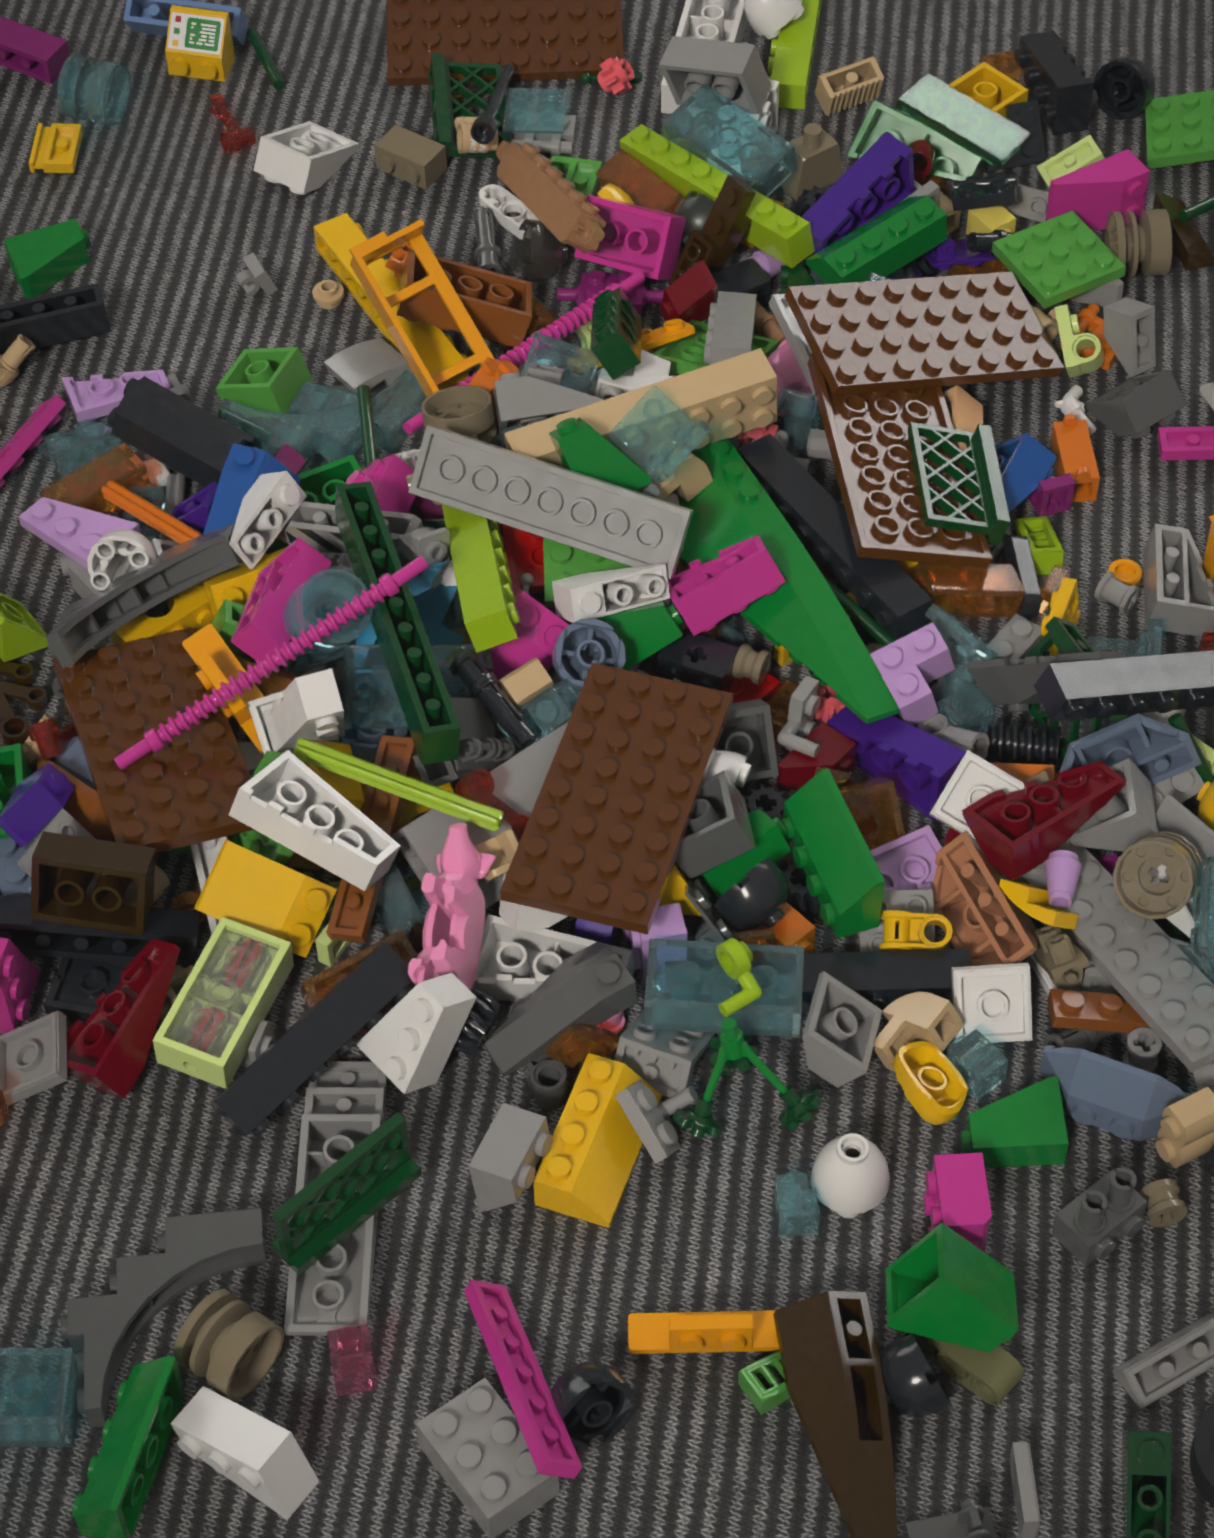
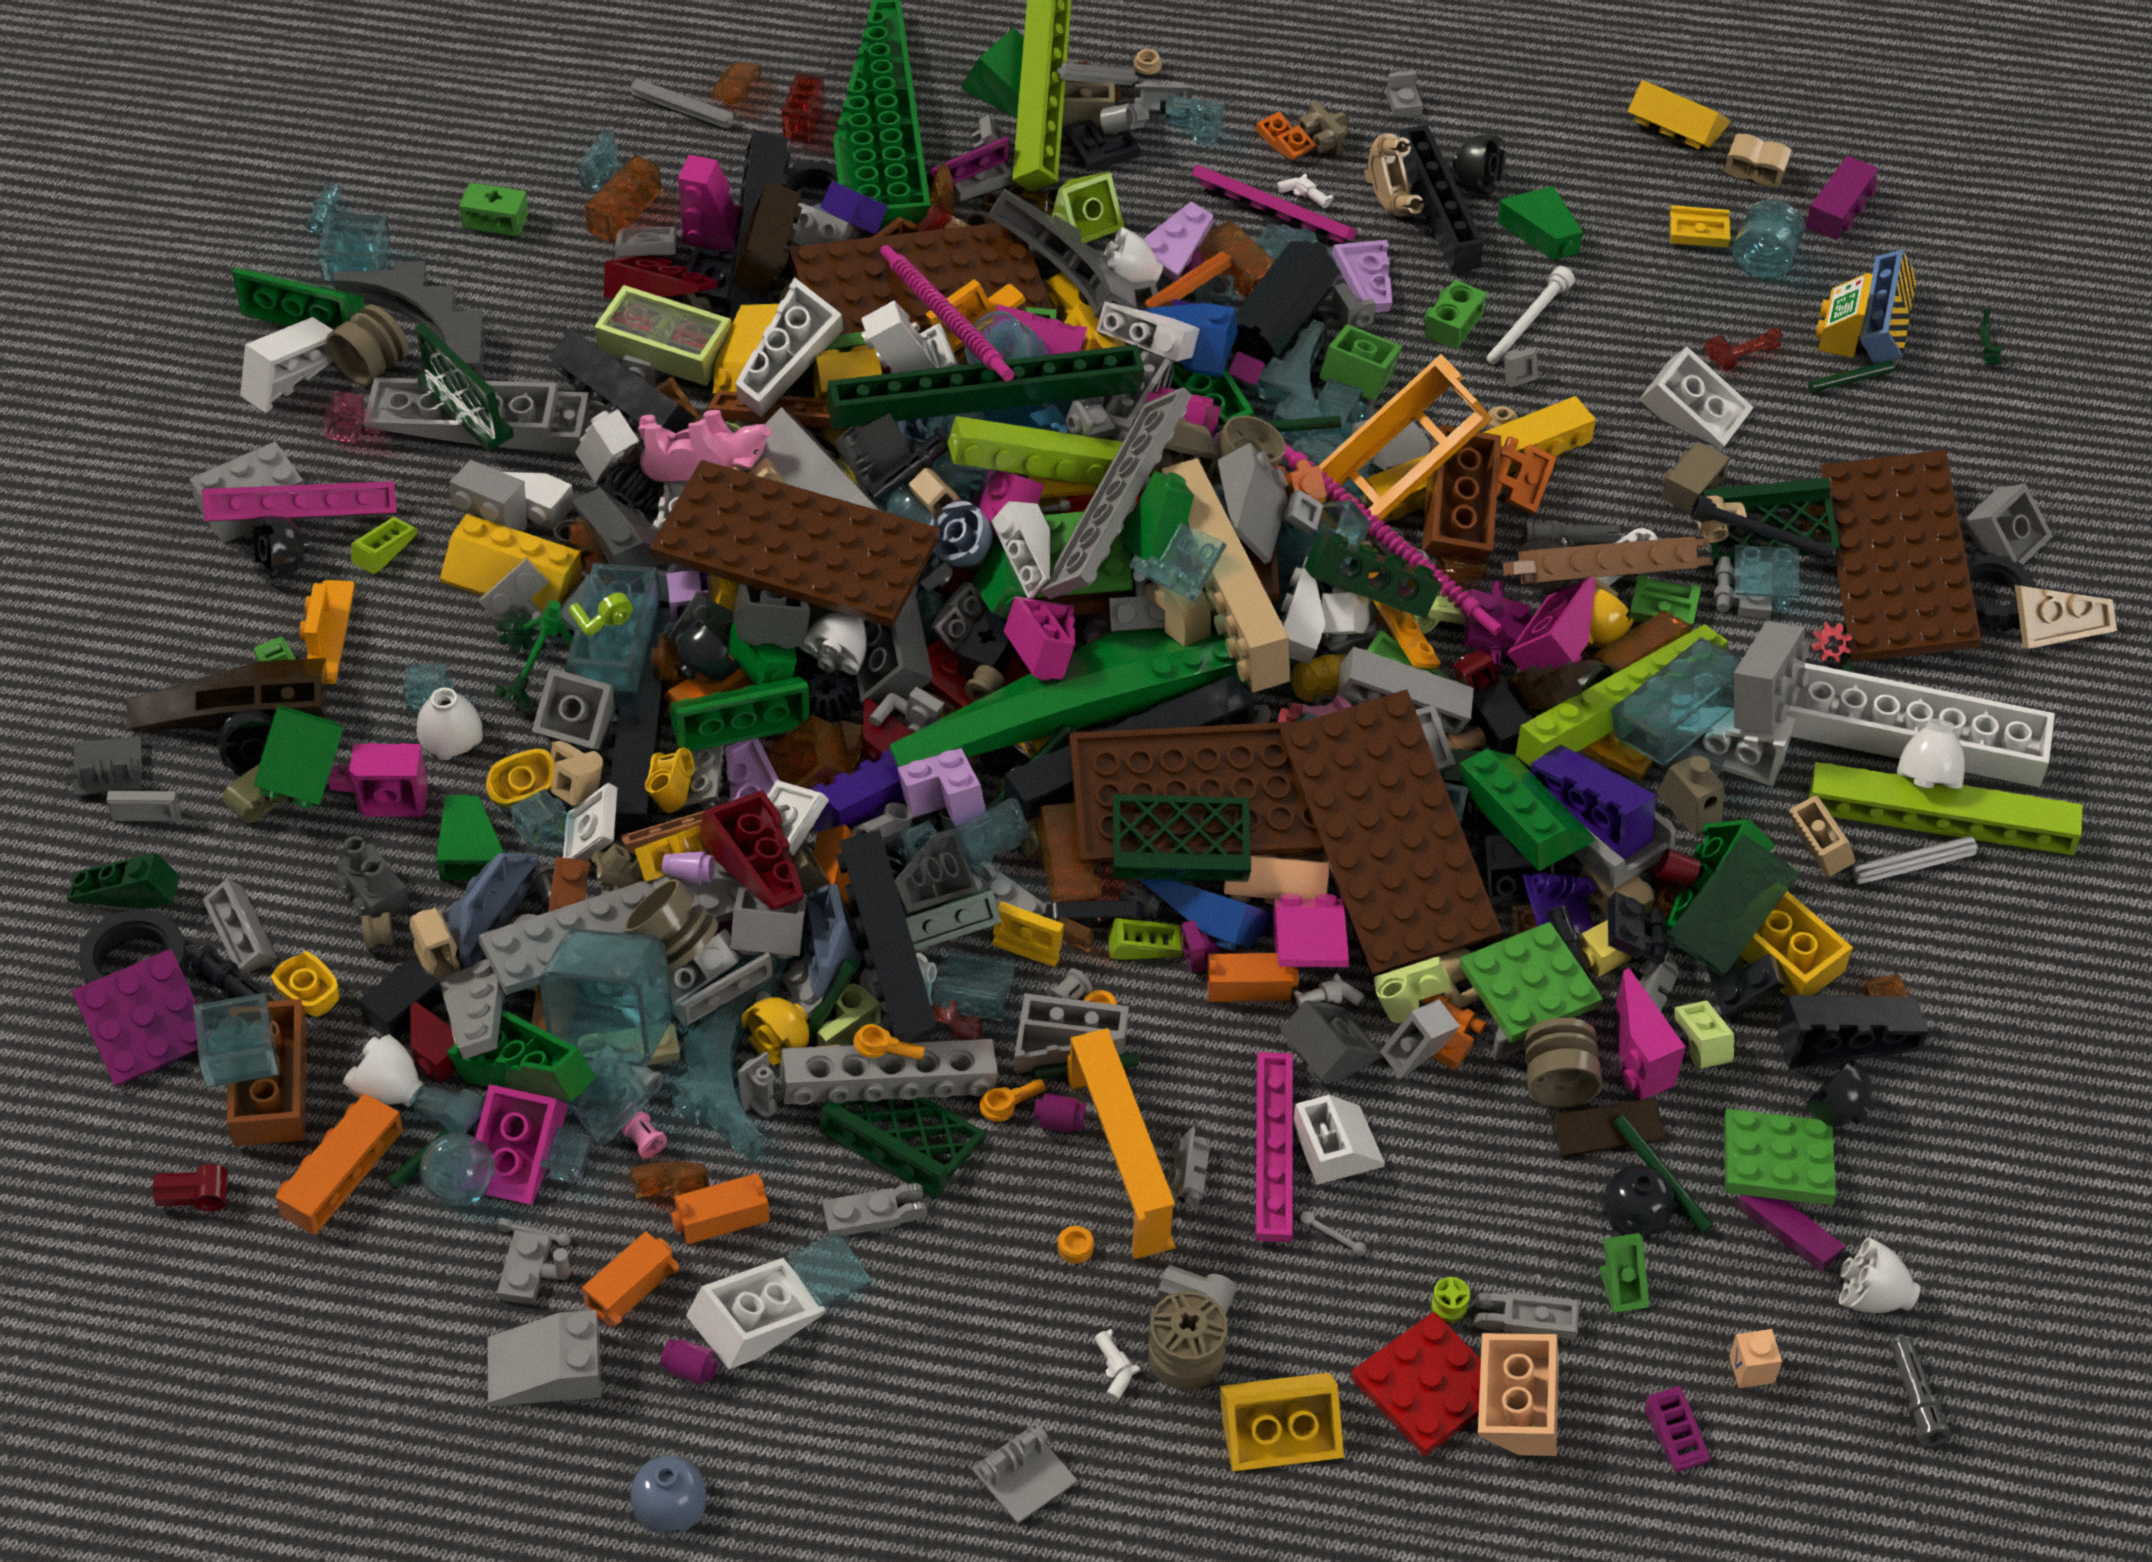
camera: 90 degrees right, 0 degrees up
(130, 249) = (1559, 281): none -> white piece
(181, 322) = (1454, 314): none -> bright green brick
(399, 784) = (817, 401): lime axle -> none
(471, 1123) = (546, 498): none -> white slope
(483, 786) = (809, 446): clear red brick -> none
(578, 1308) = (386, 543): none -> lime slope
(848, 33) = (1914, 860): none -> light grey axle
(1037, 401) = (1310, 931): none -> dark pink slope

